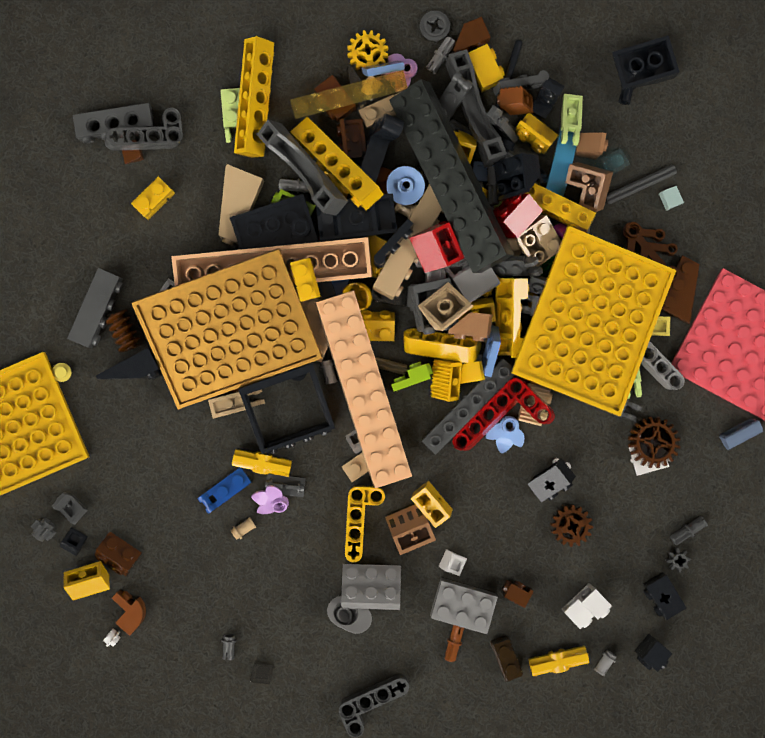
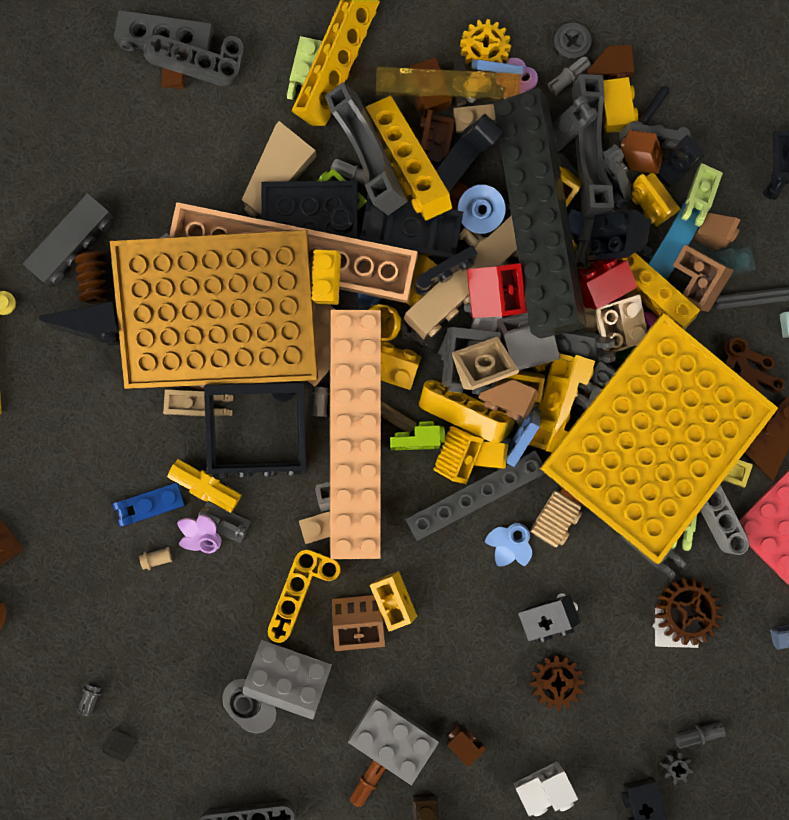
camera: 15 degrees right, 5 degrees down
(153, 198) = (179, 134): yellow brick -> none
(452, 562) = (396, 682): white slope -> none
(500, 411) = (513, 513): red beam -> none

